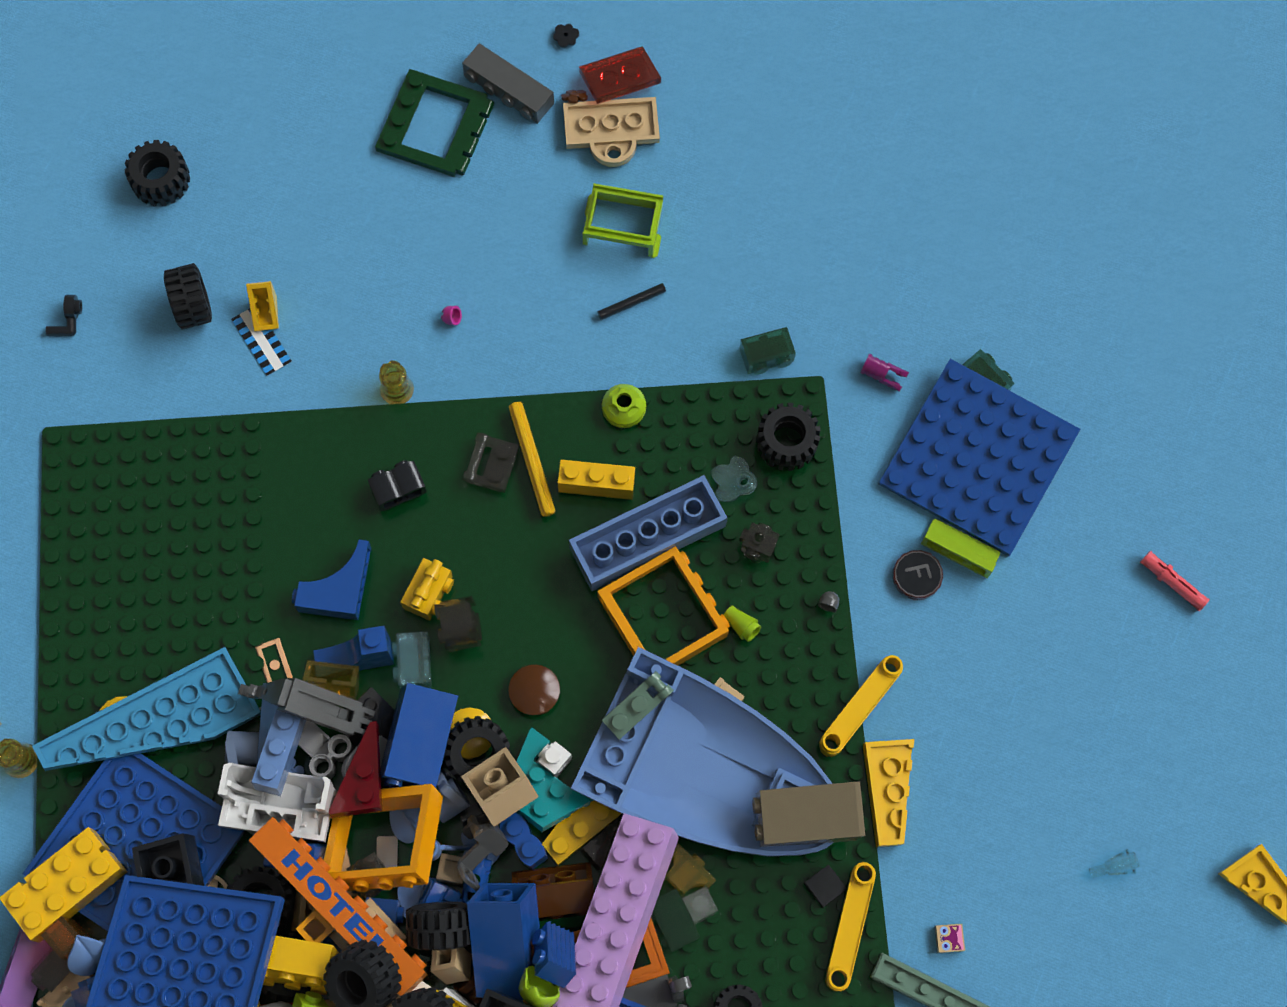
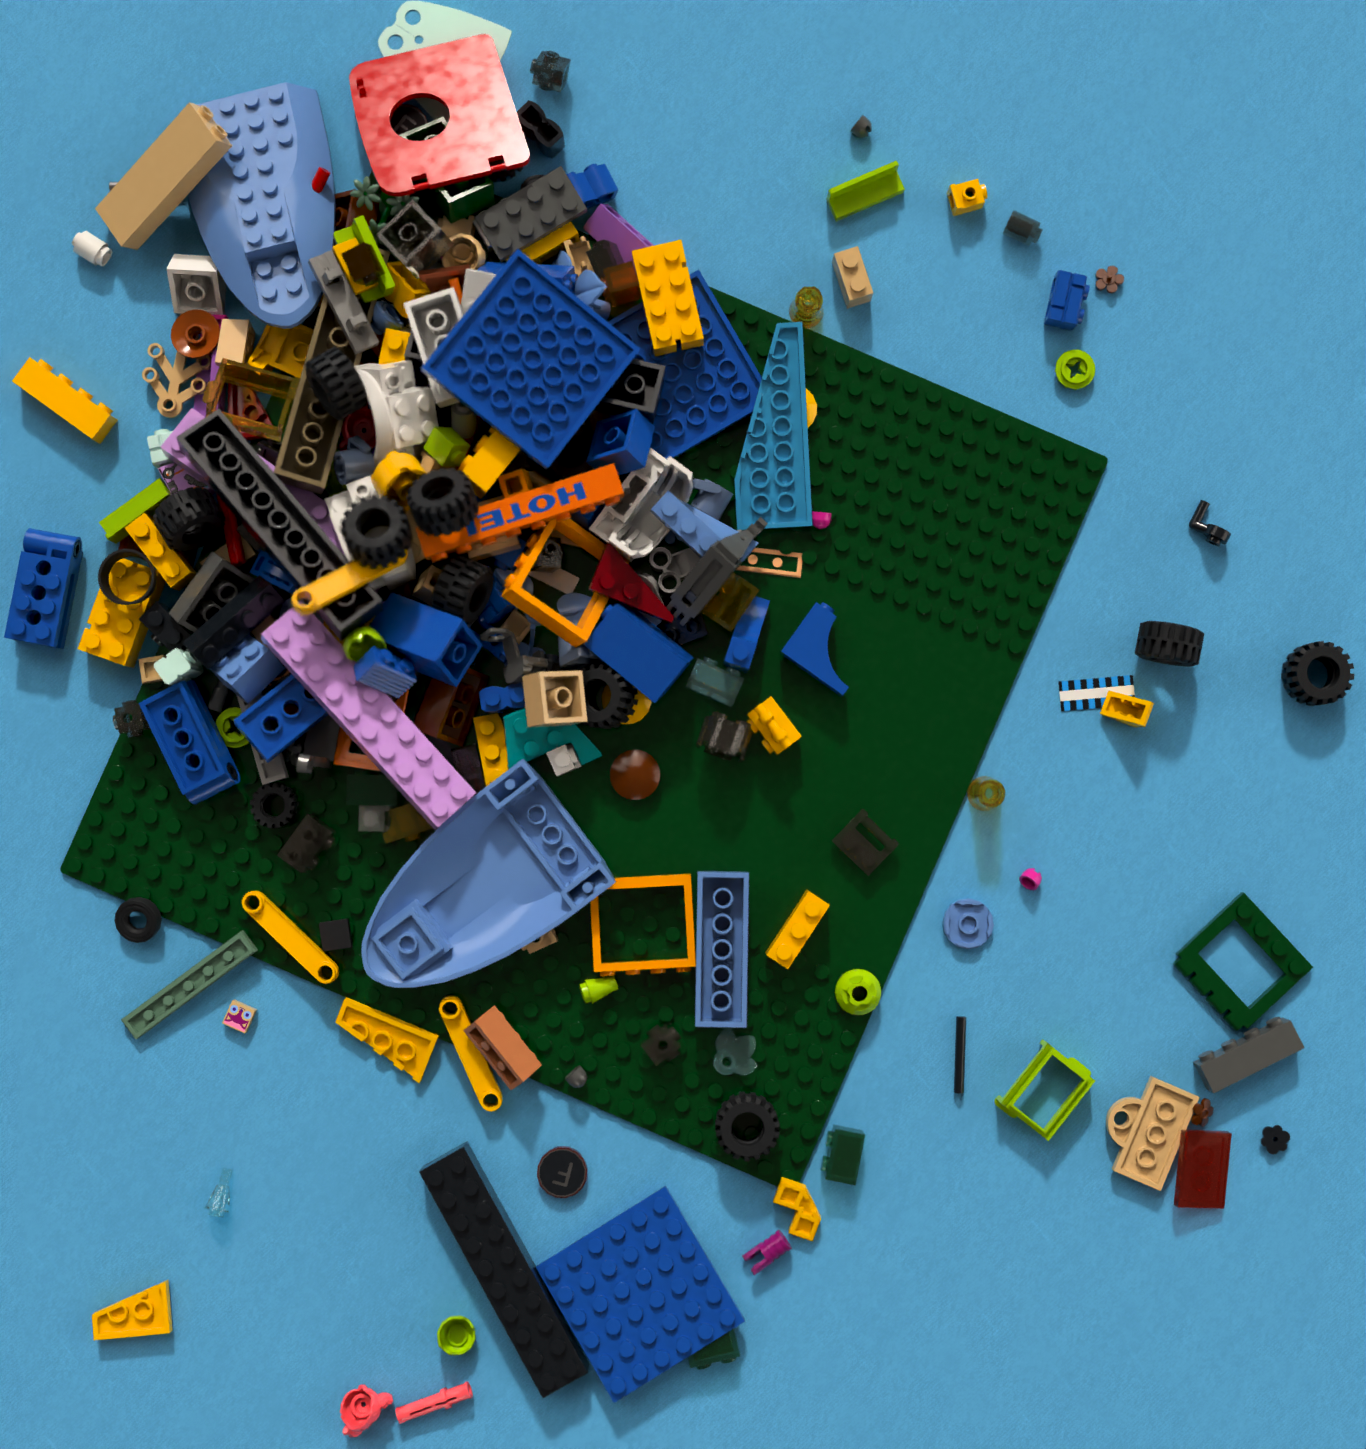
camera: 125 degrees right, 15 degrees up
(215, 642) = (821, 519): none -> dark pink hinge
(225, 852) = (621, 441): none -> blue brick
(397, 485) = (885, 746): black brick -> none
(517, 348) = (968, 923): none -> medium blue tile
(532, 459) = (849, 881): yellow axle -> none
(636, 705) = (565, 853): sand green plate -> none
(757, 957) = (307, 844): none -> clear smoke brick
(809, 814) = (390, 951): dark tan slope -> none
(825, 368) = (797, 1197): none -> yellow tile
(840, 677) = (502, 1047): none -> nougat brick
(961, 548) = (566, 1226): lime panel -> none
(1026, 581) = (505, 1269): none -> black brick
(1107, 590) = (456, 1335): none -> lime hair
(1225, 633) = (361, 1417): none -> coral hair

